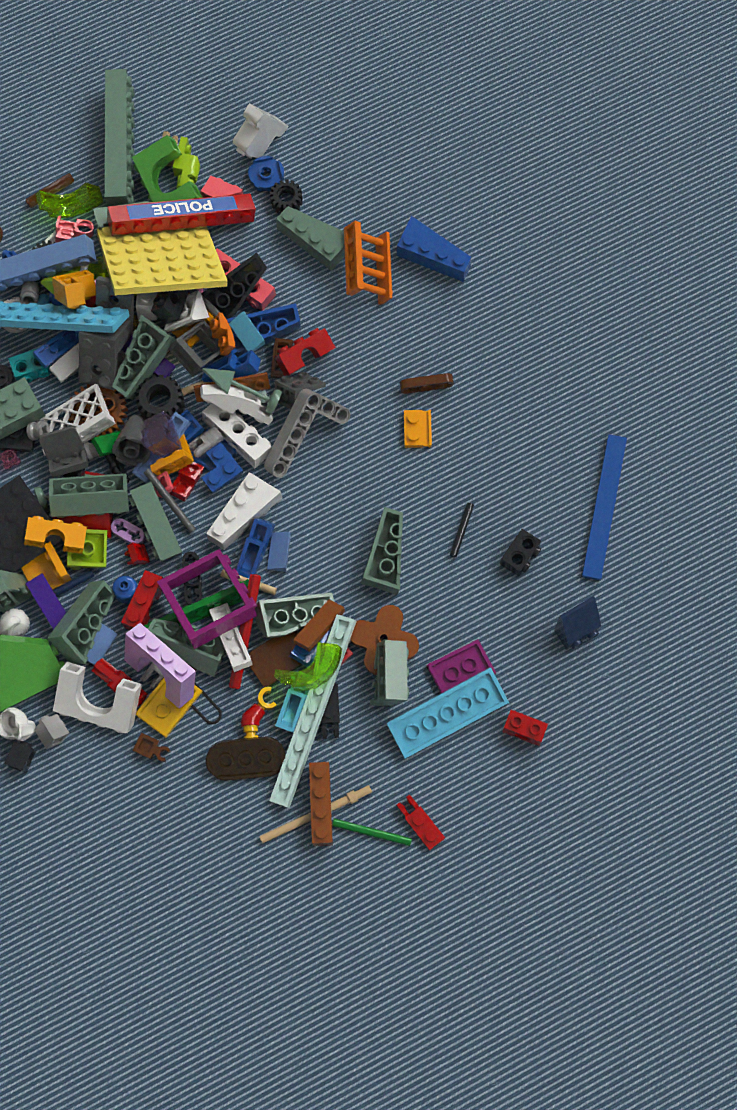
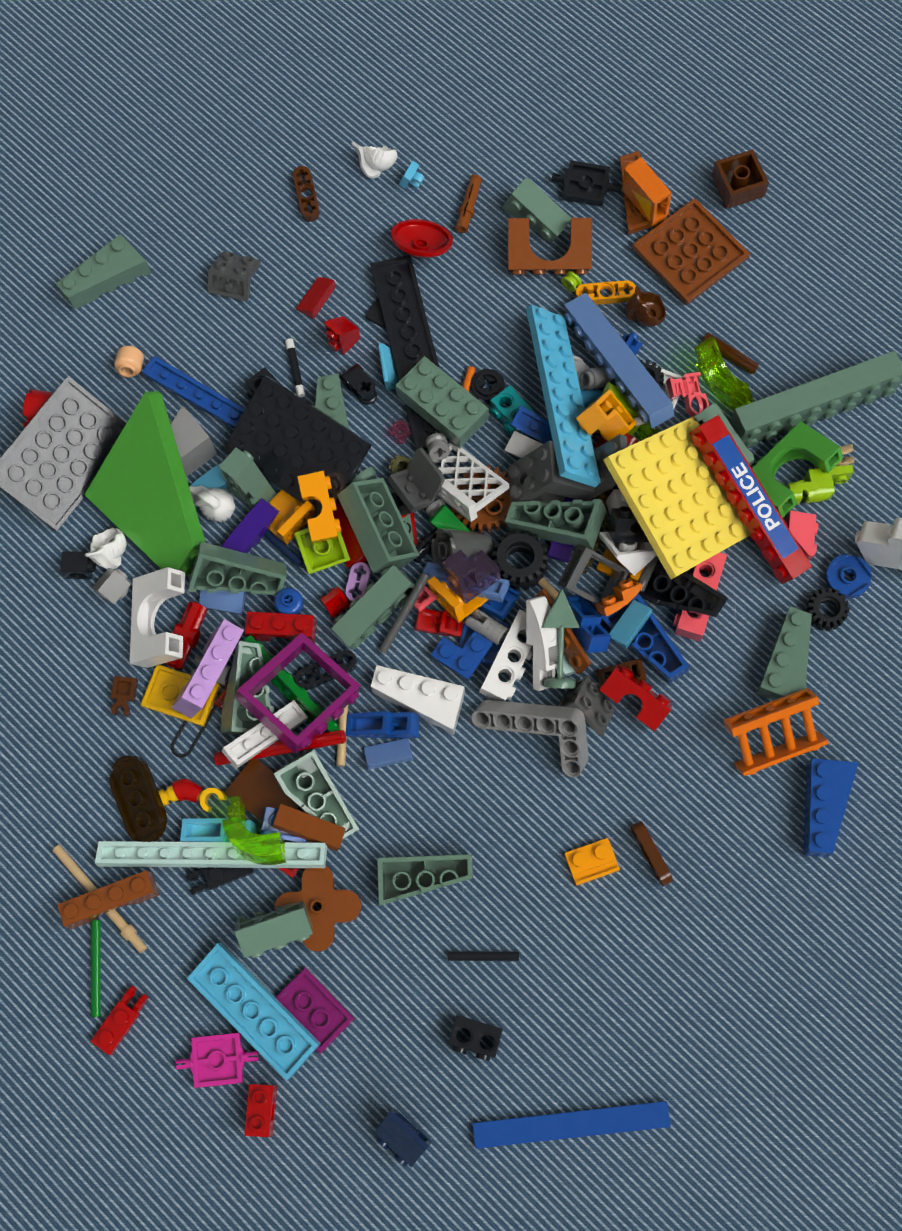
camera: 75 degrees right, 0 degrees up
(40, 467) = (395, 467): none -> olive animal
(476, 752) = (217, 1060): none -> dark pink plate

